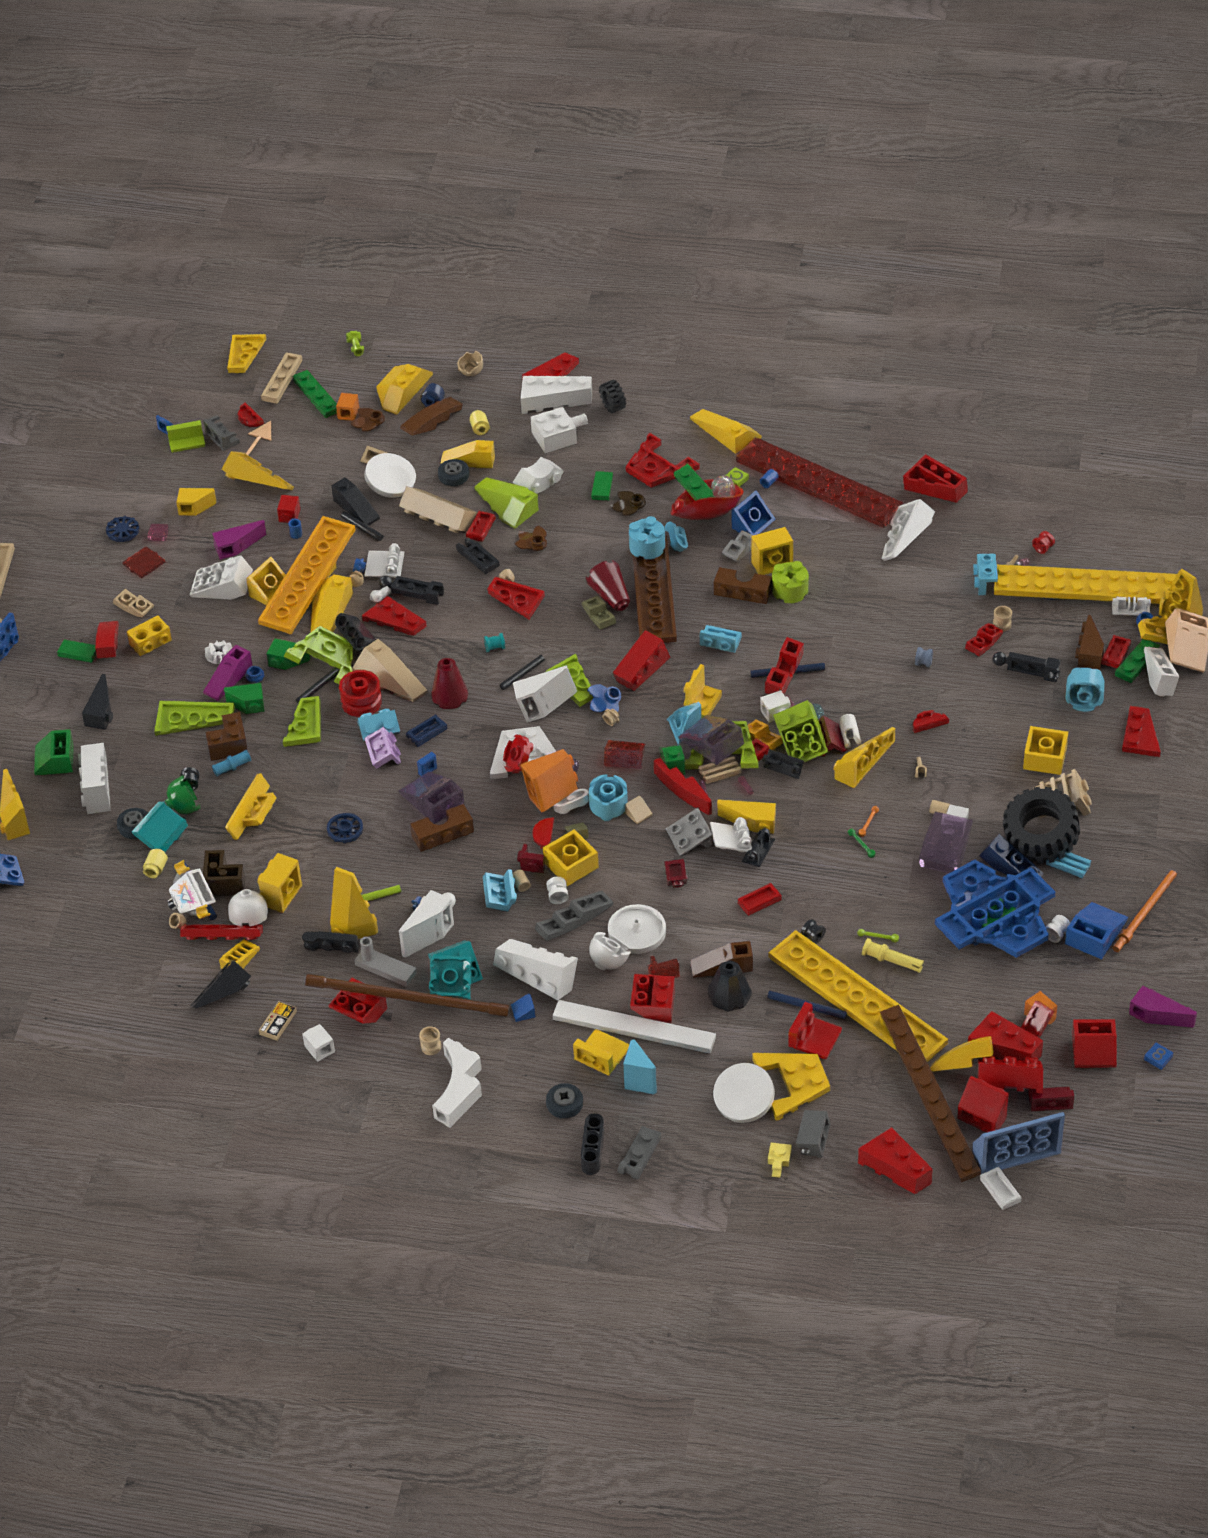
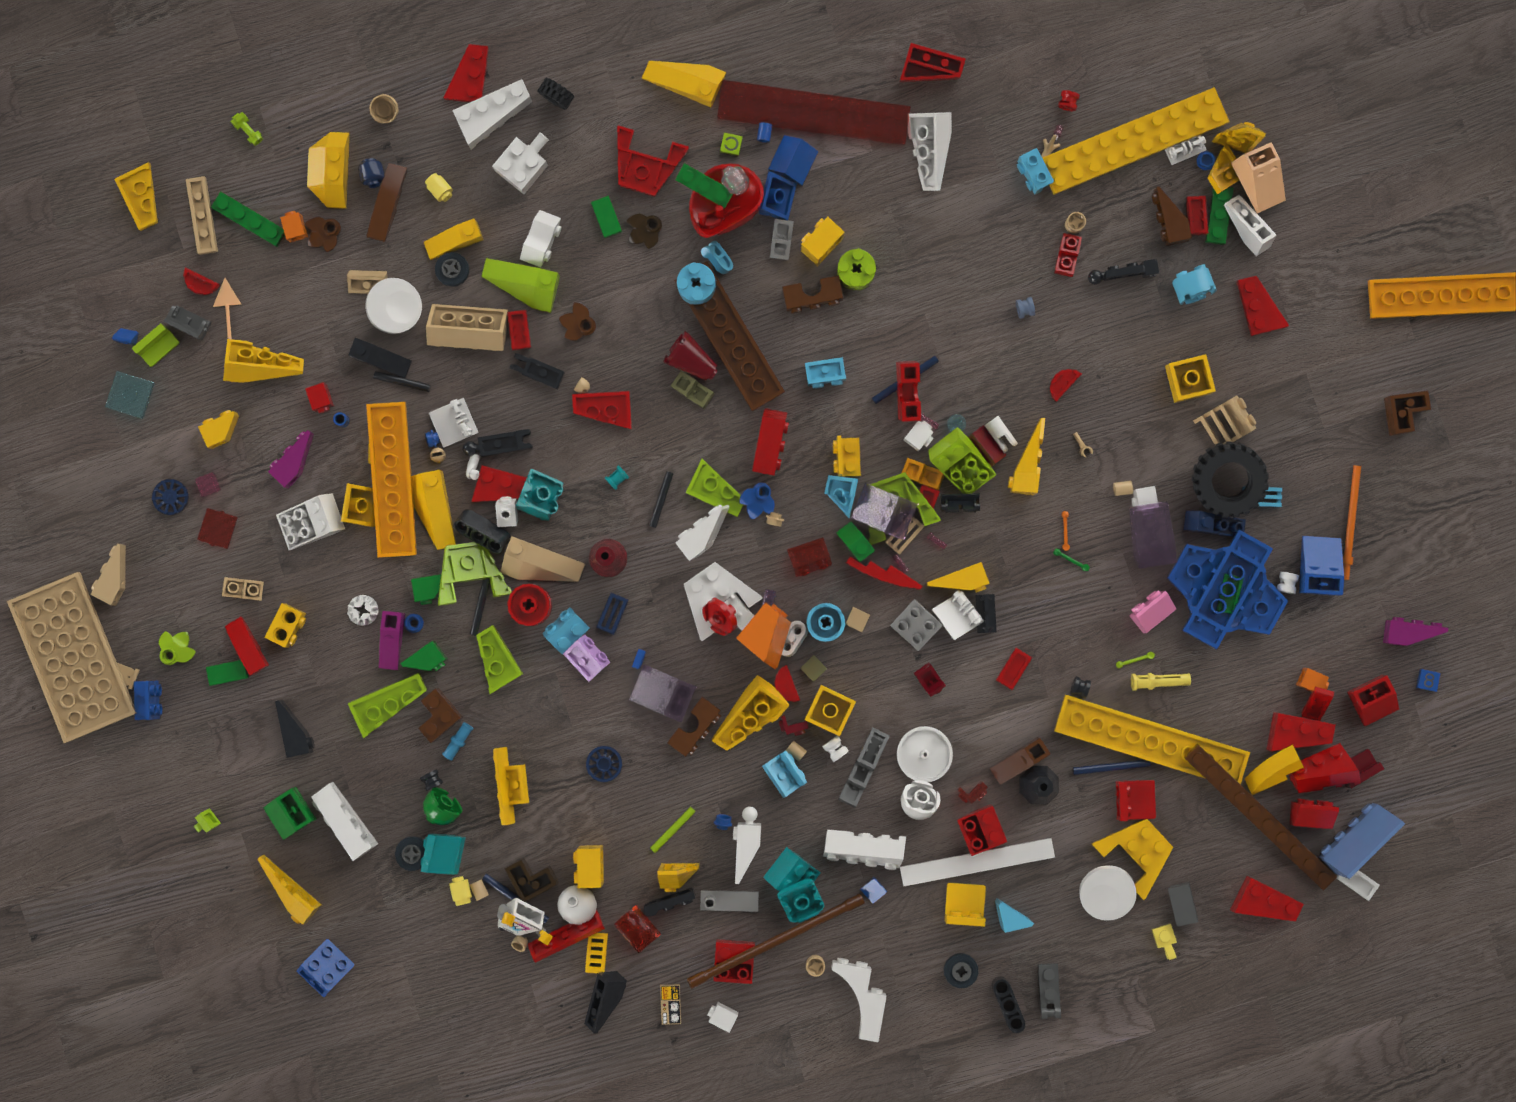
camera: 25 degrees left, 40 degrees up
(36, 558) = (112, 580): none -> tan slope
(48, 620) = (177, 646): none -> lime plate
(141, 460) = (129, 395): none -> clear light blue tile
(169, 871) = (479, 890): none -> tan hinge
(288, 949) = (637, 929): none -> clear red bracket
(386, 628) = (506, 512): none -> white brick
(420, 628) = (540, 495): none -> teal slope
(499, 835) = (753, 710): none -> yellow wedge
(785, 503) = (793, 159): none -> blue slope
(914, 896) = (1153, 611): none -> bright pink slope

